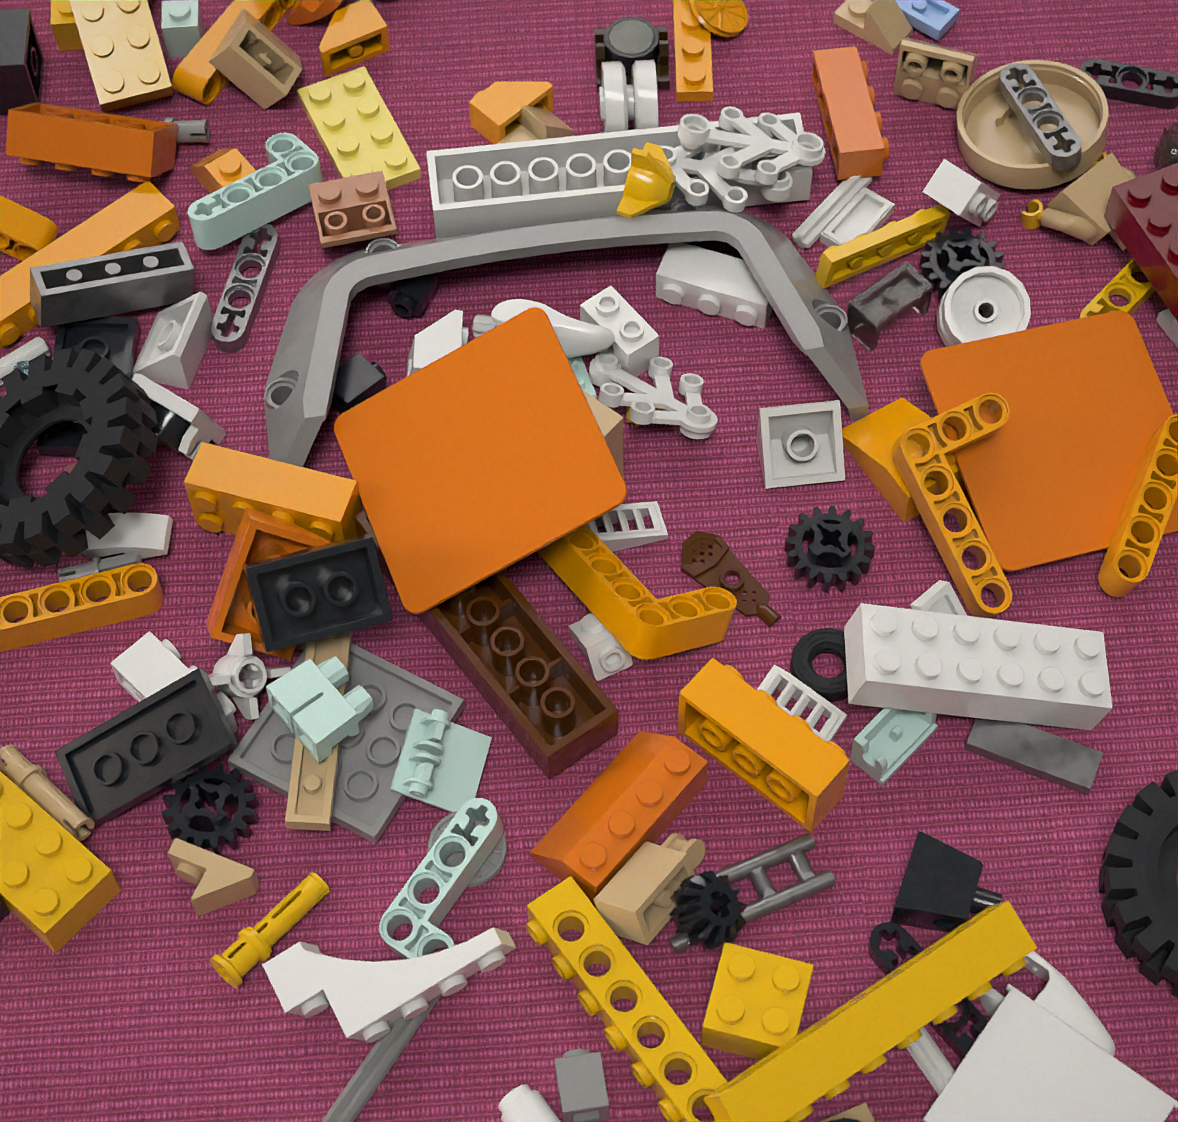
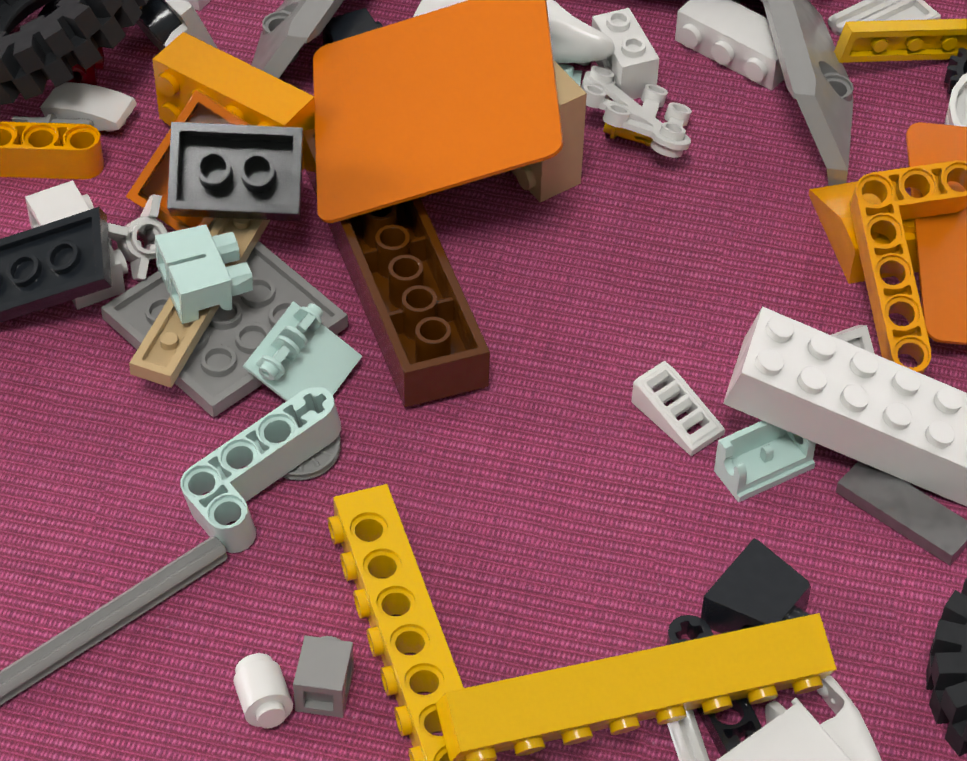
camera: 15 degrees right, 10 degrees down
(220, 878) = (45, 401): tan slope -> none
(221, 792) = (45, 346): black gear -> none
(256, 942) = (62, 465): yellow pin -> none
(376, 994) = (162, 530): white arch -> none
(600, 647) = (503, 307): white bracket -> none
(622, 810) = (467, 455): orange slope -> none
(628, 609) = (537, 273): light orange beam -> none
(630, 538) = (542, 218): white slope -> none
(638, 896) = (463, 517): tan brick -> none
(708, 910) = (510, 547): black gear -> none
(717, 565) = (640, 264): reddish brown piece -> none
(755, 1002) = (527, 636): yellow brick -> none
(762, 744) = (625, 422): light orange brick -> none
(770, 900) = (538, 573): flat silver bar -> none
(800, 444) = (767, 184): white slope -> none
(804, 652) = (707, 361): black tyre -> none
(829, 548) = (761, 279): black gear -> none
(886, 302) = (897, 86): clear smoke panel -> none

